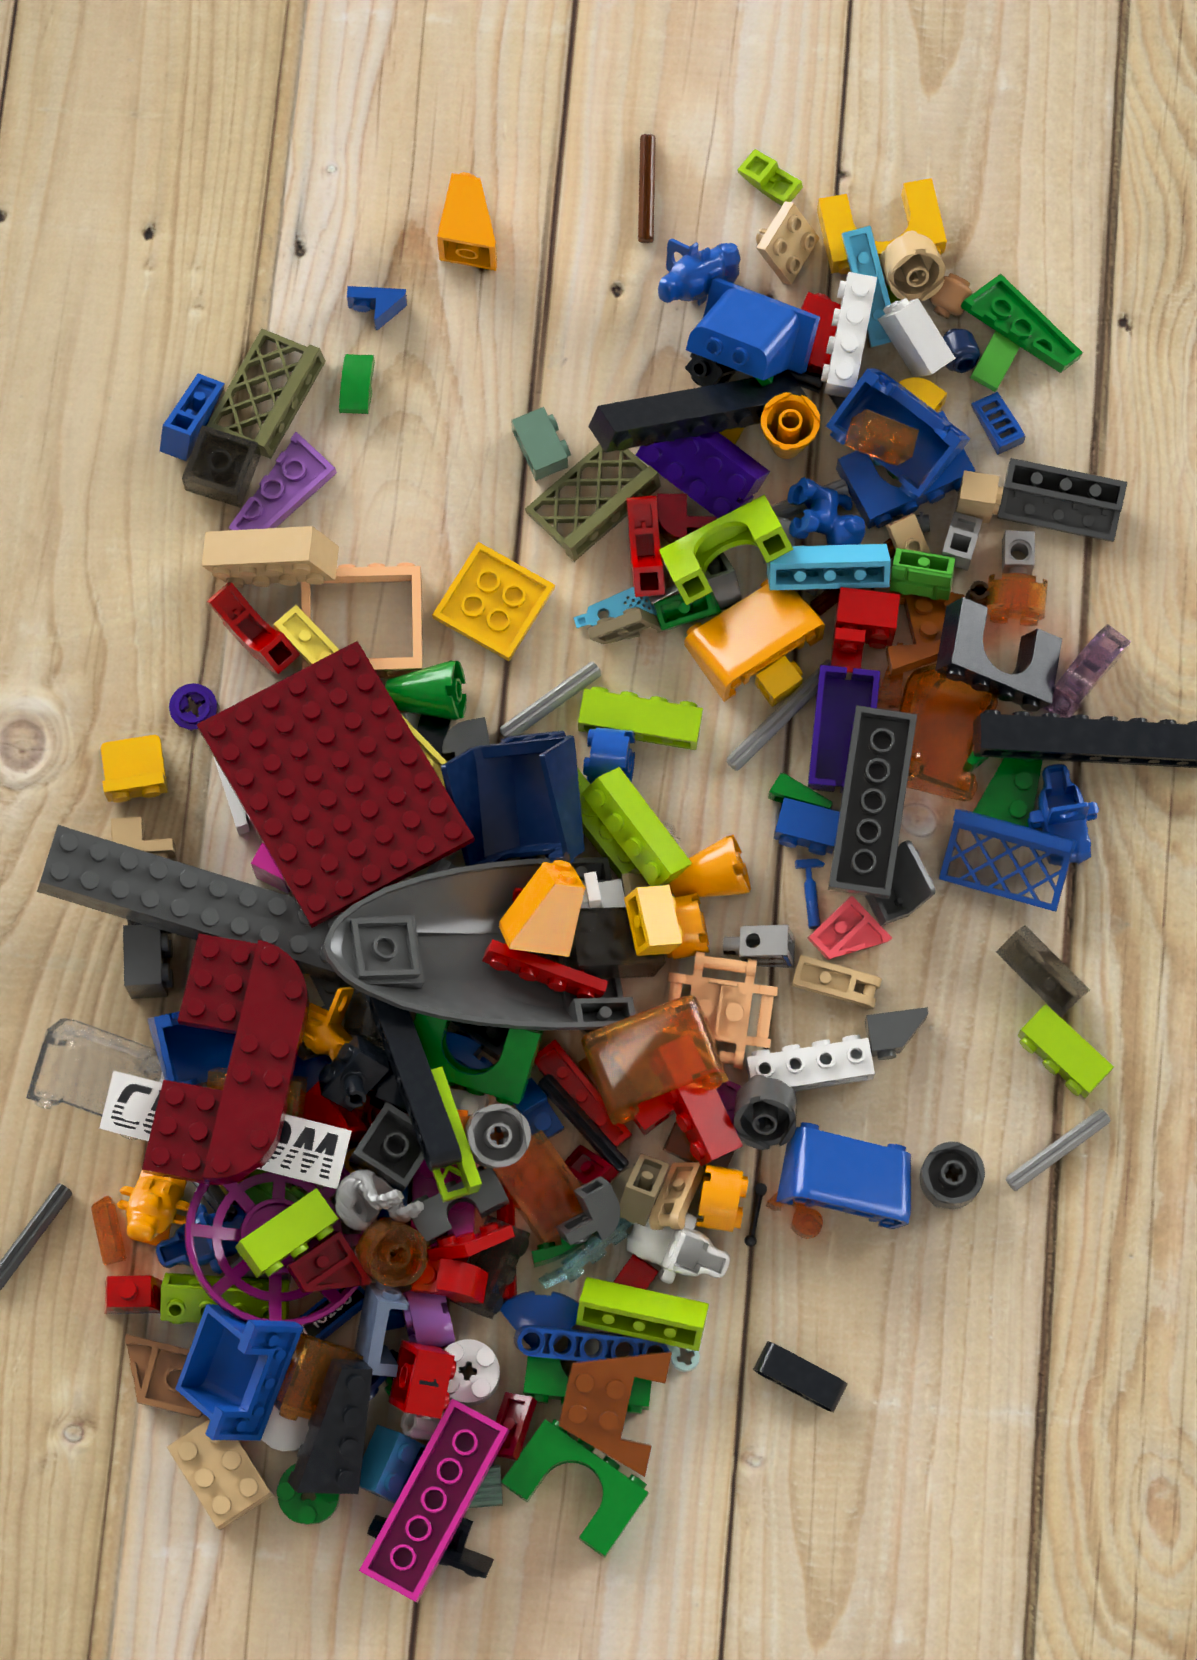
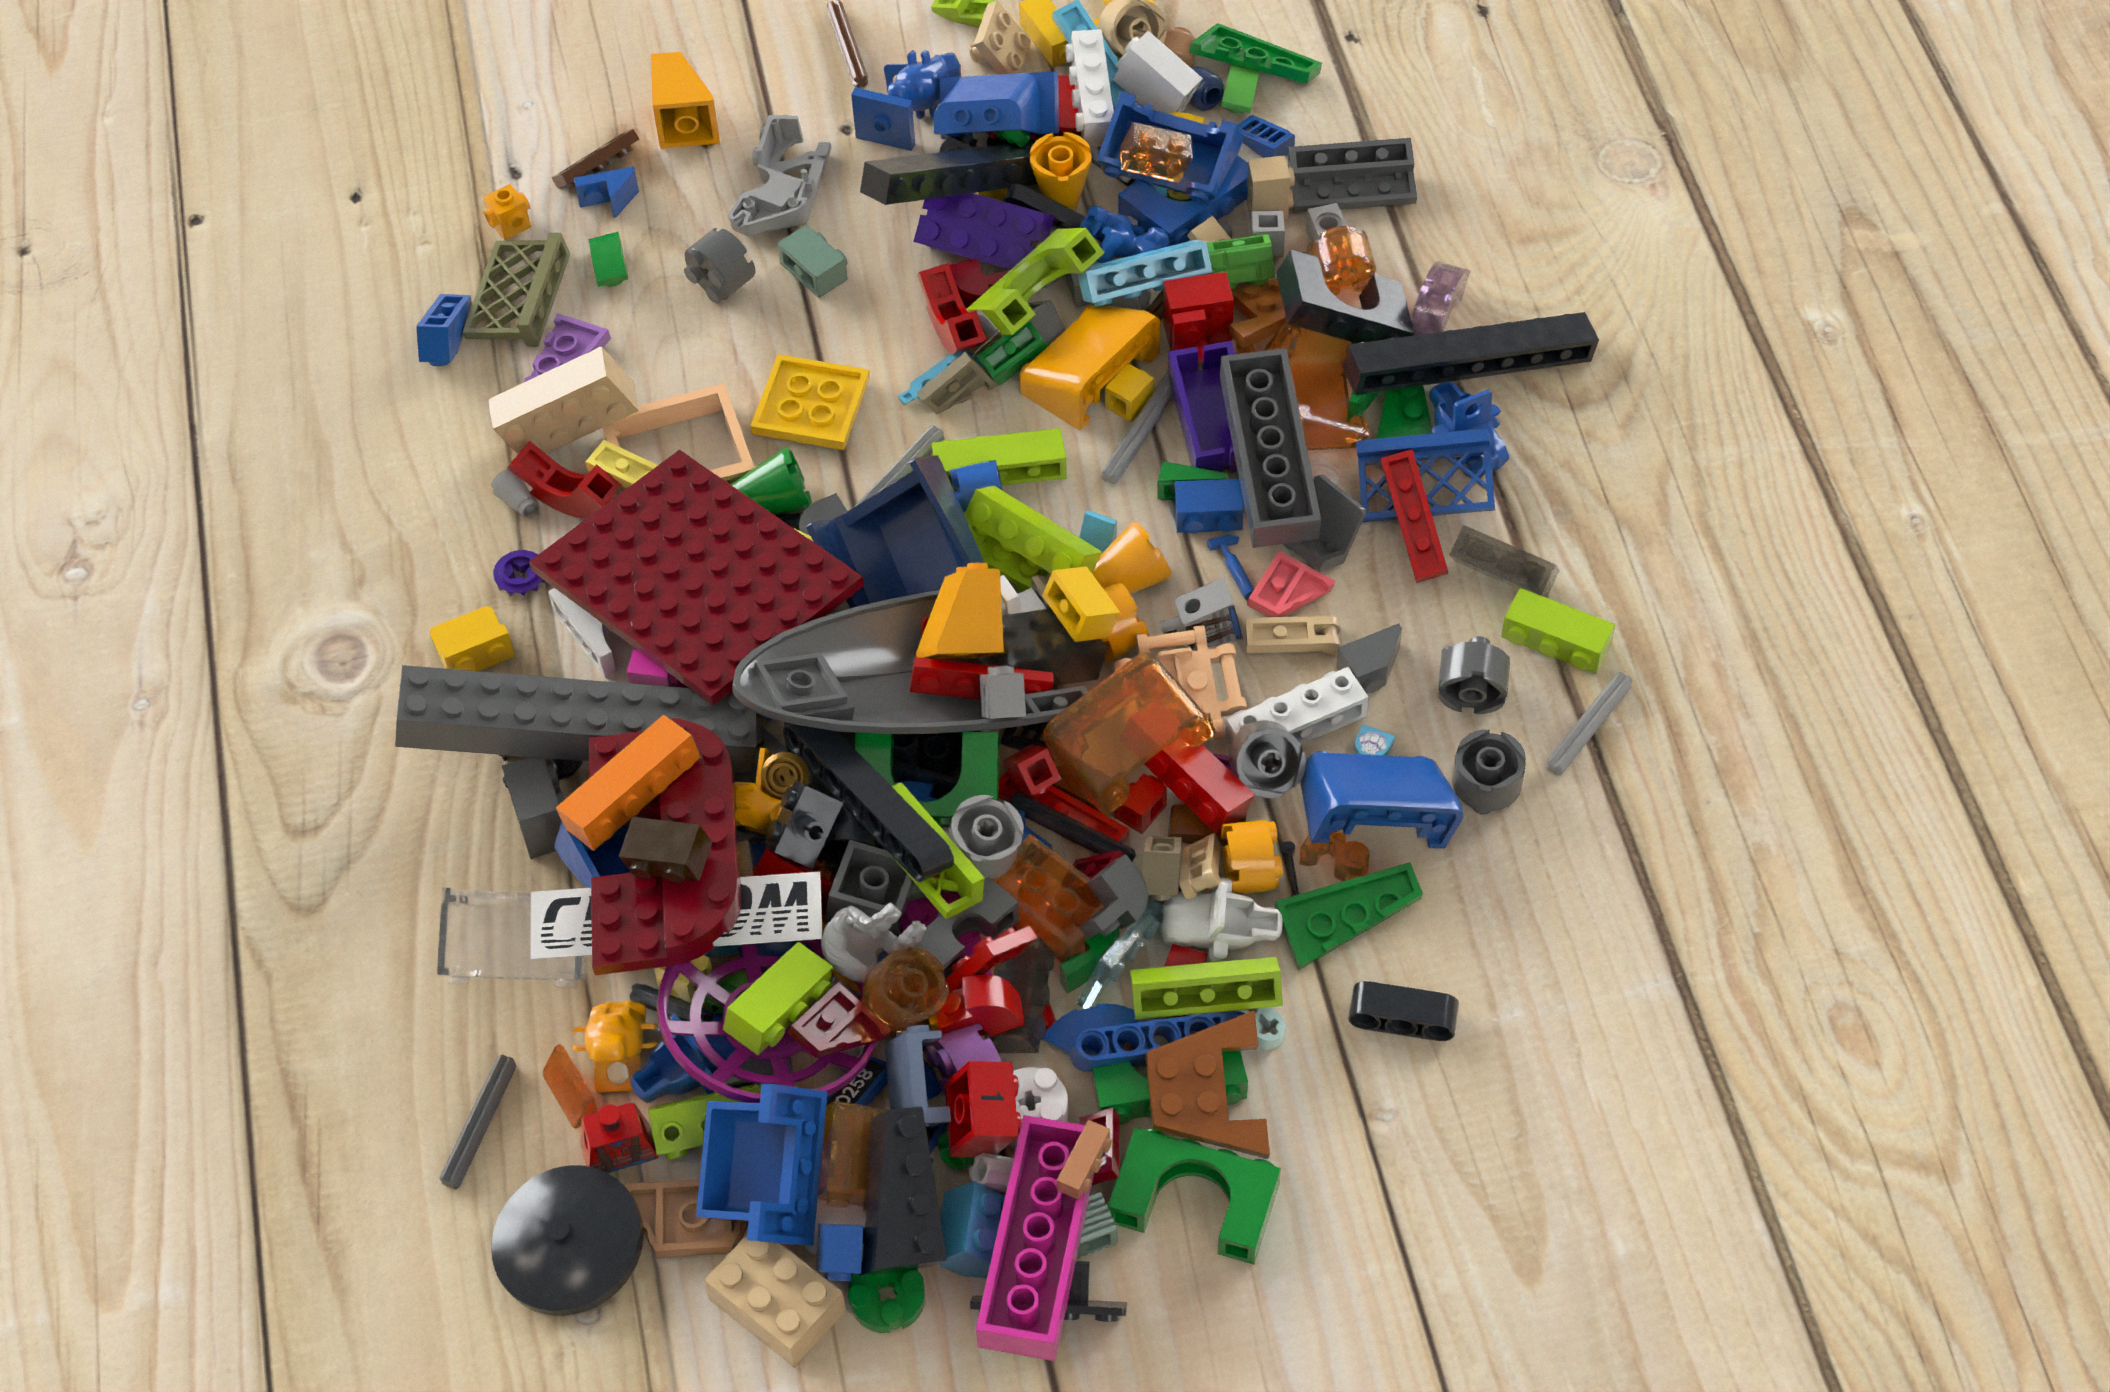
camera: 15 degrees left, 20 degrees down
(72, 1369) = (567, 1240): none -> black dish
(208, 622) = (514, 492): none -> light grey cone
(215, 1005) = (628, 782): none -> orange brick
(221, 466) = (488, 355): clear smoke brick -> none
(226, 1088) = (665, 849): none -> dark brown brick
(278, 1456) = (839, 1250): none -> blue brick
(279, 301) = (507, 211): none -> light orange brick
(351, 1018) = (778, 766): none -> pearl gold cone
(375, 261) = (597, 159): none -> reddish brown plate
(451, 428) = (718, 264): none -> dark grey brick
(486, 1457) = (1084, 1160): none -> nougat piece
(536, 363) = (783, 198): none -> light grey piece
(553, 1003) = (1002, 693): none -> light grey brick
(565, 1061) = (1032, 770): none -> red brick
(605, 517) = (901, 300): olive fence -> none
(649, 302) = (883, 119): none -> blue plate
(701, 825) = (1098, 530): none -> medium azure slope
(765, 457) = (1028, 198): none -> black beam
(776, 1268) = (1340, 912): none -> green wing
(866, 1112) = (1373, 741): none -> tile
(972, 1080) = (1474, 676): none -> dark grey brick
(981, 898) = (1414, 516): none -> red plate

